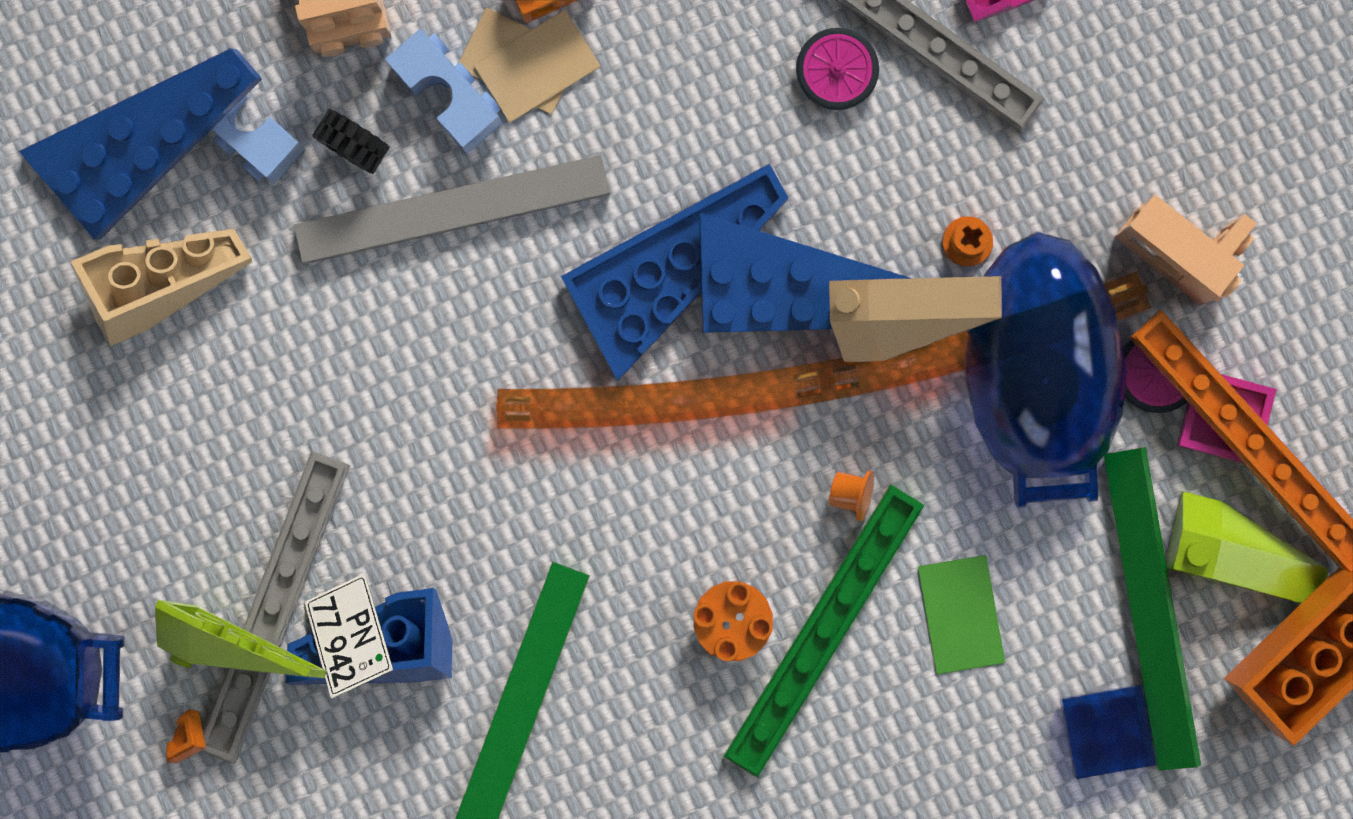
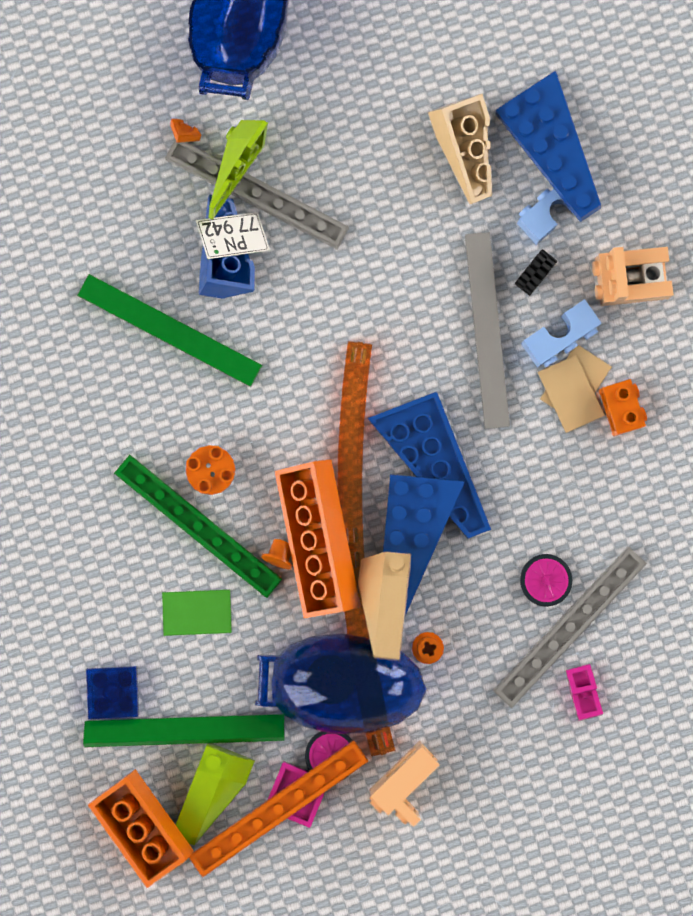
camera: 85 degrees right, 0 degrees up
(822, 434) = (317, 538): none -> orange brick

